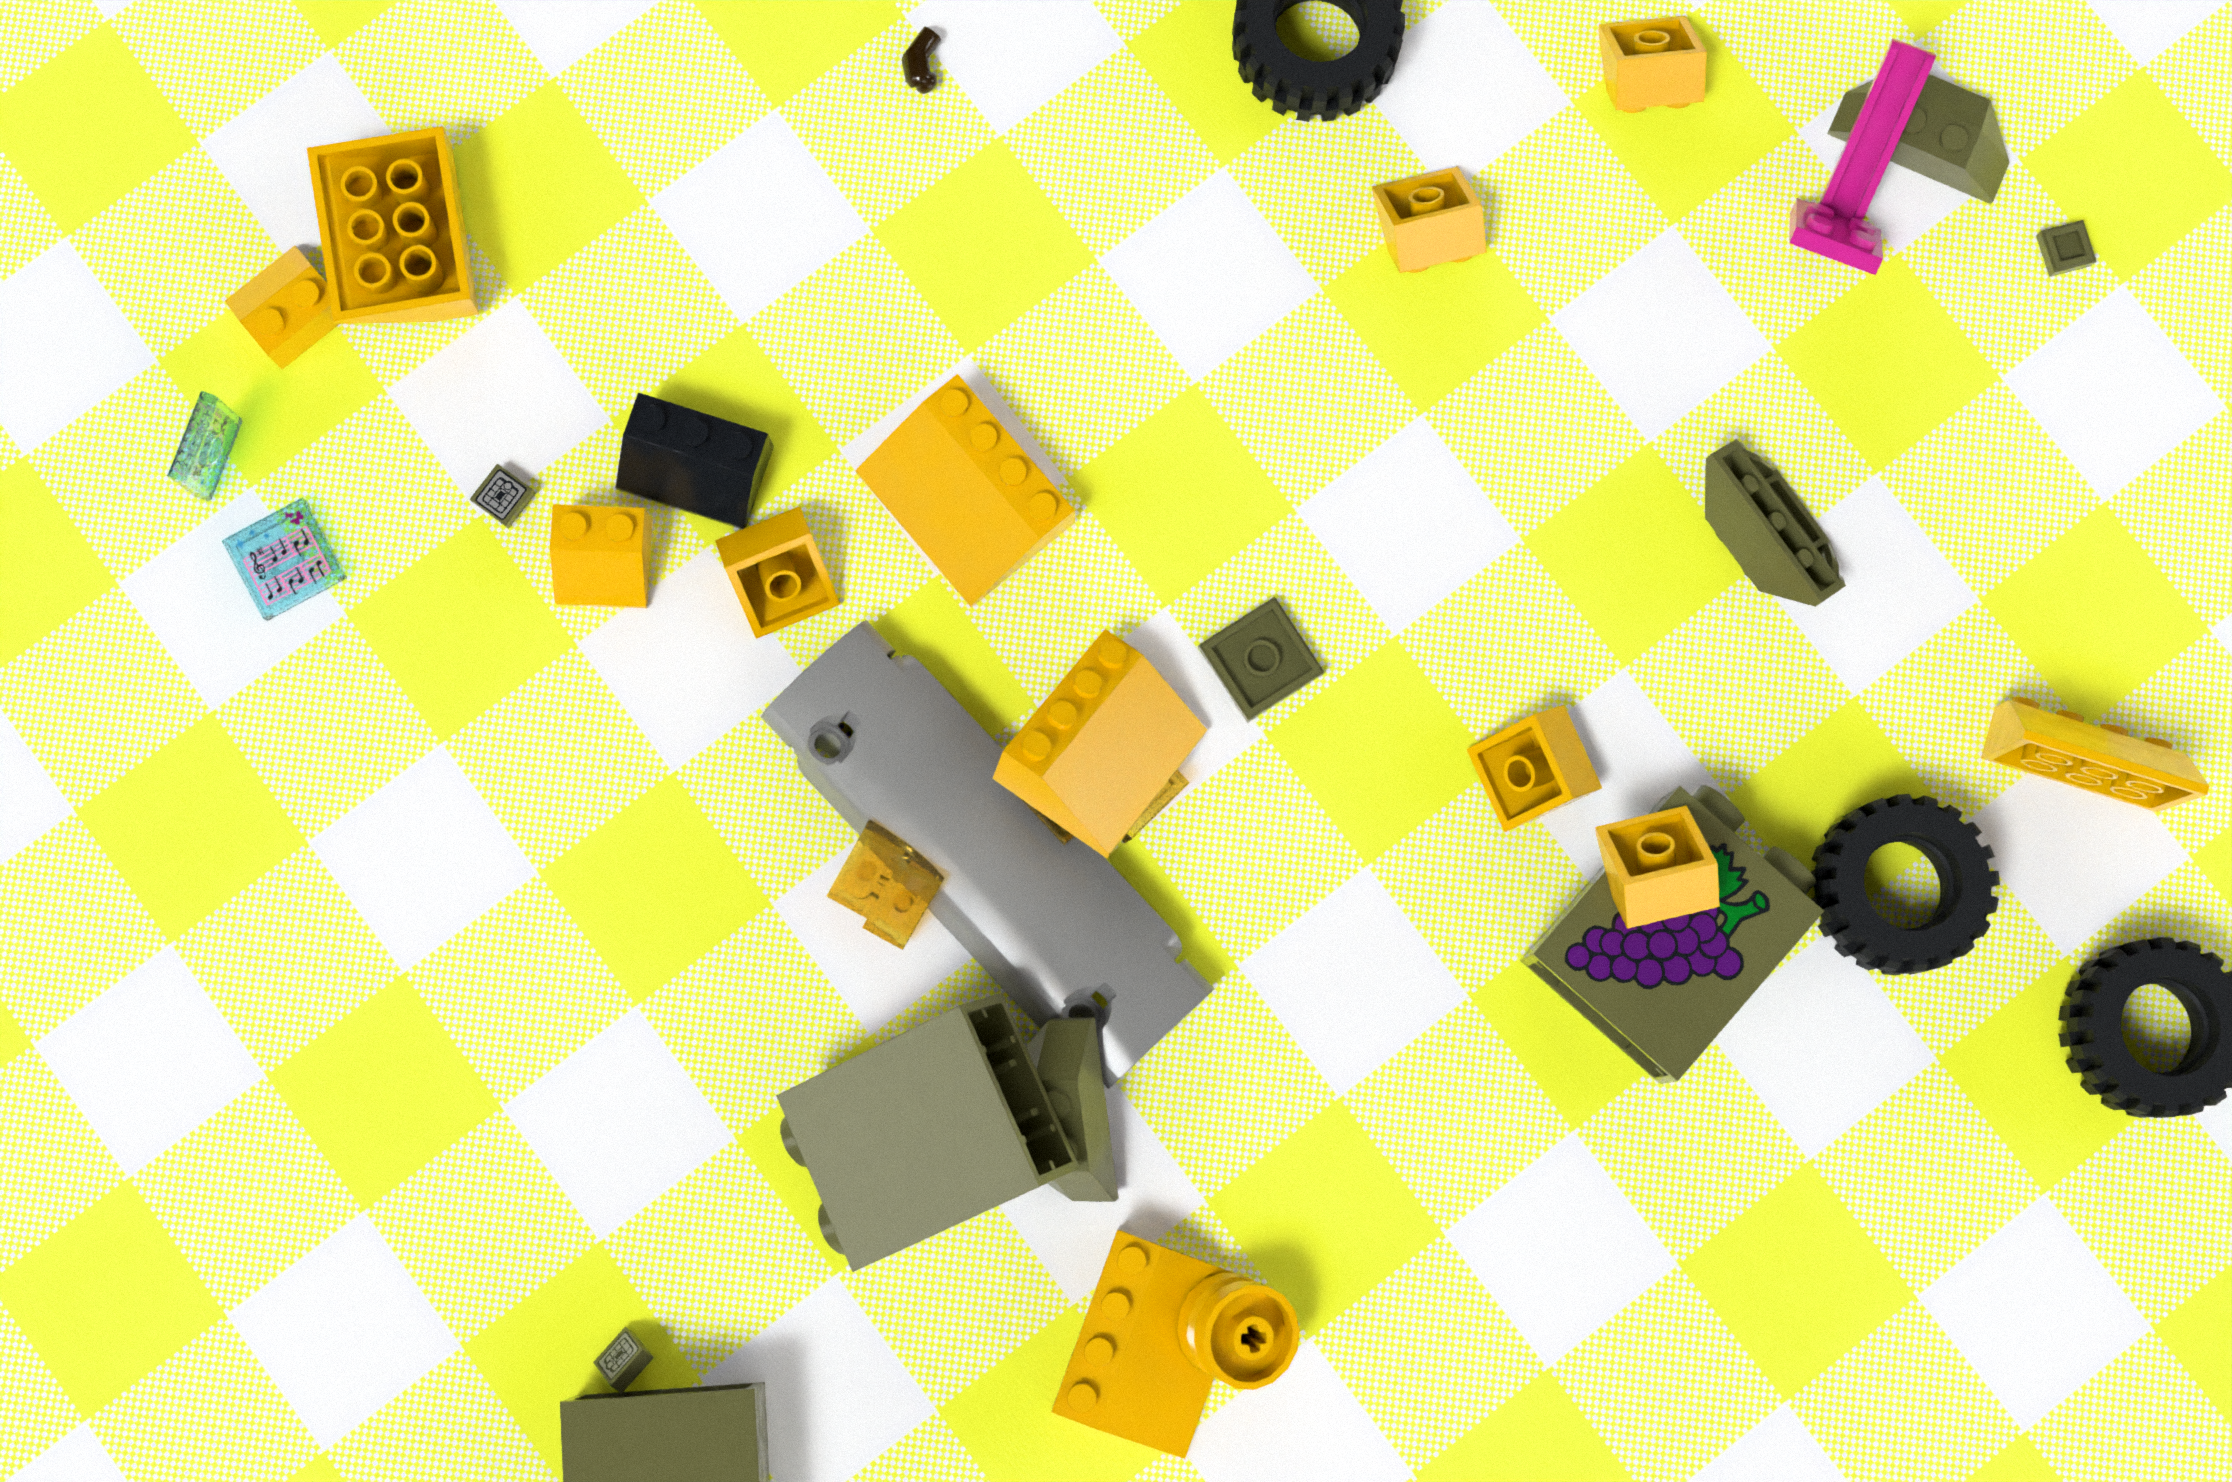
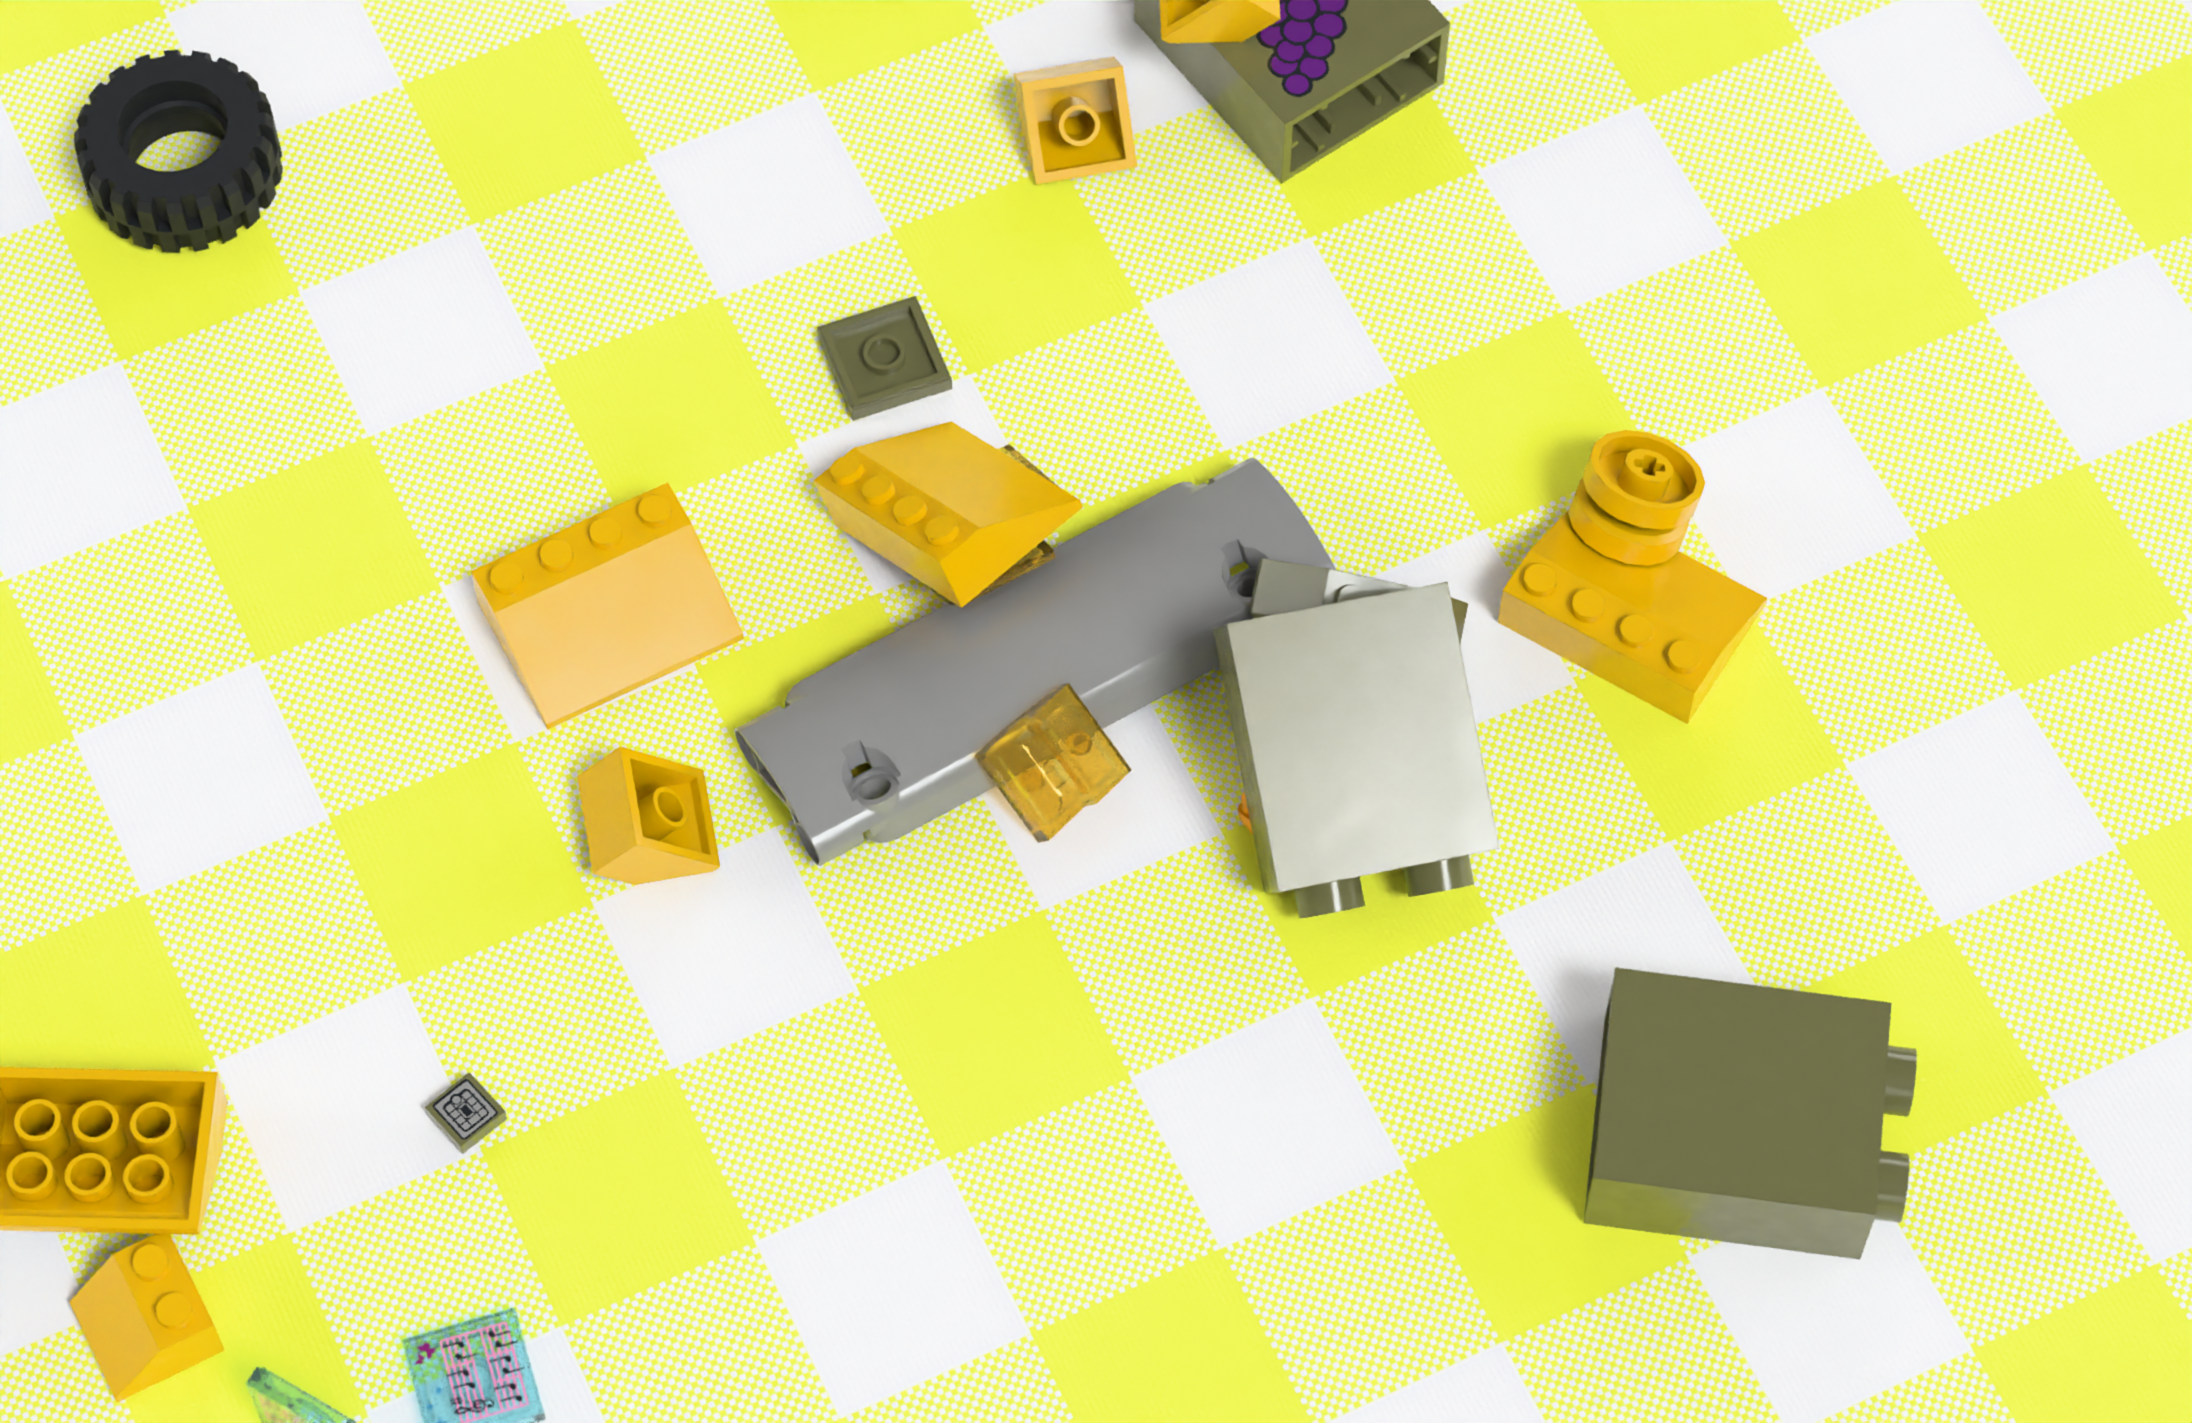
camera: 75 degrees left, 20 degrees down
(600, 555) = (573, 1007): yellow slope -> none
(623, 1360) = (1552, 1149): tile -> none
(692, 461) = (486, 886): black slope -> none
(916, 63) = (71, 569): dark brown arm -> none
(1430, 220) = (430, 94): yellow slope -> none

